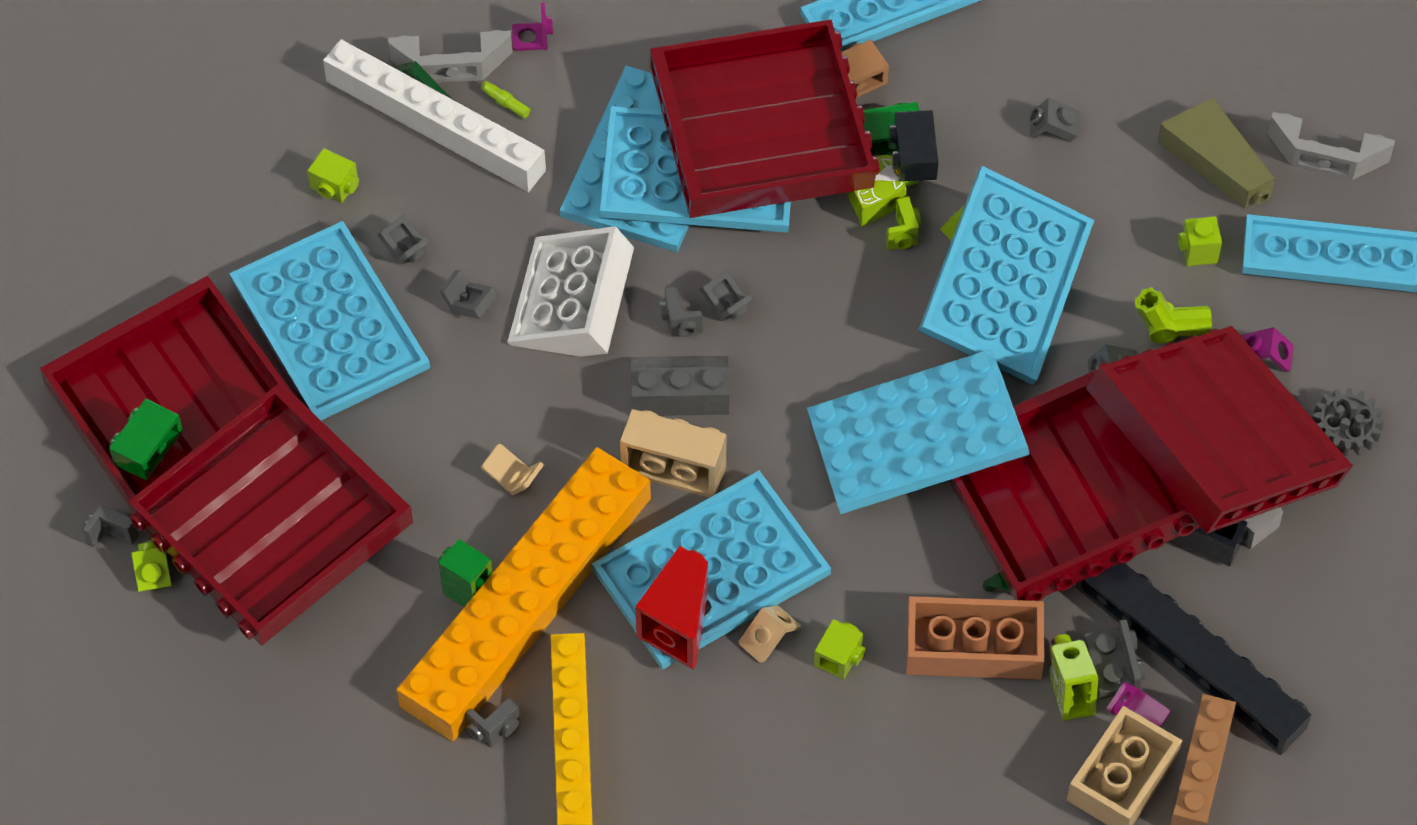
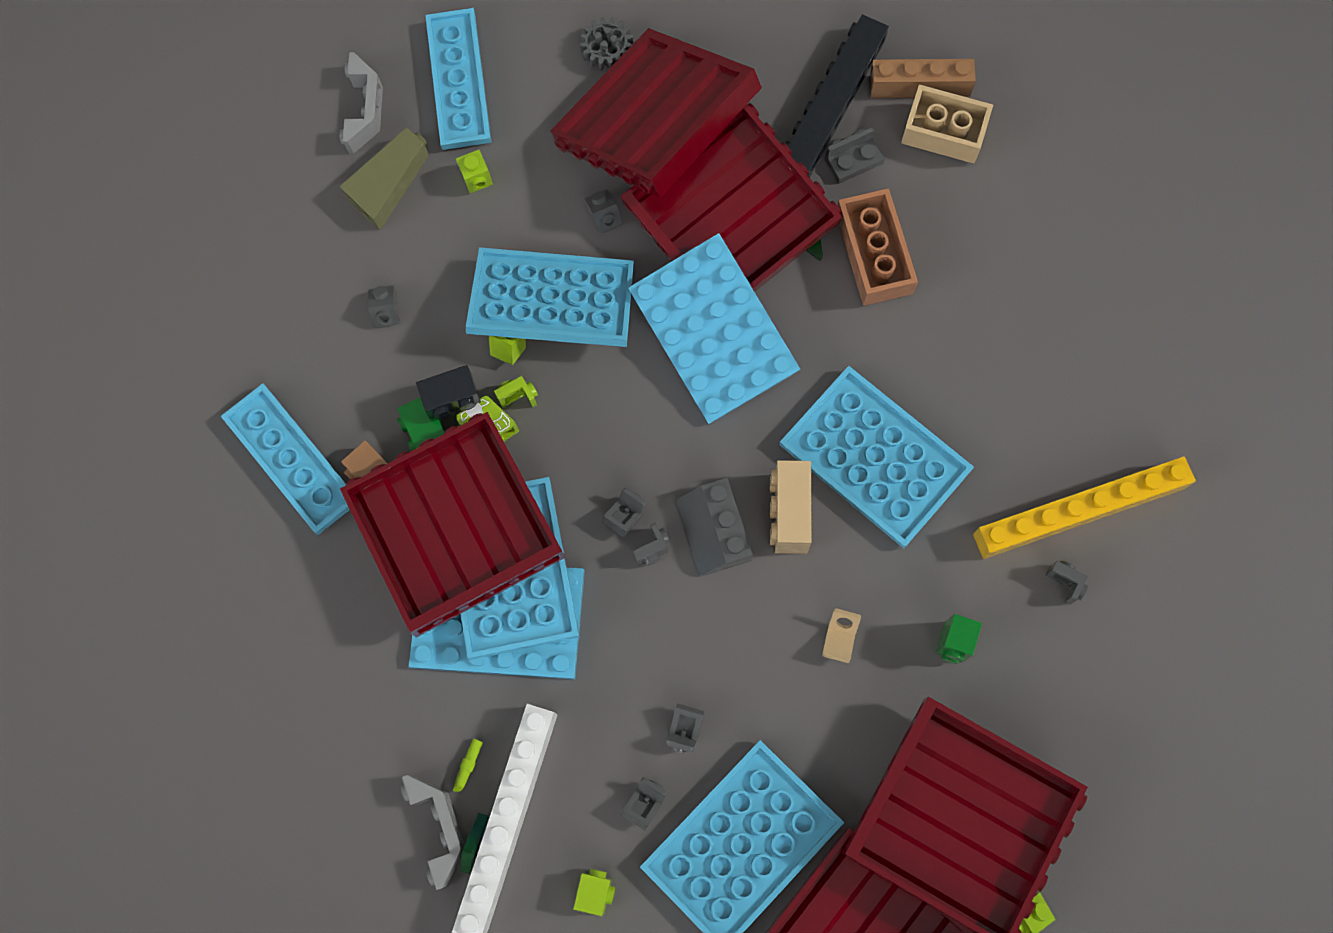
camera: 100 degrees left, 15 degrees up
(524, 594) = (946, 587): light orange brick -> none
(541, 30) = (385, 752): magenta bracket -> none
(572, 292) = (655, 642): white slope -> none
(675, 606) = (938, 457): red slope -> none
(767, 631) = (916, 397): tan bracket -> none
(839, 649) = (913, 342): lime brick -> none
(1071, 666) = (884, 171): lime torso -> none
(1139, 703) = (890, 127): magenta bracket -> none
(1169, 322) = (552, 178): lime piece -> none
(1266, 343) = (555, 109): magenta bracket -> none

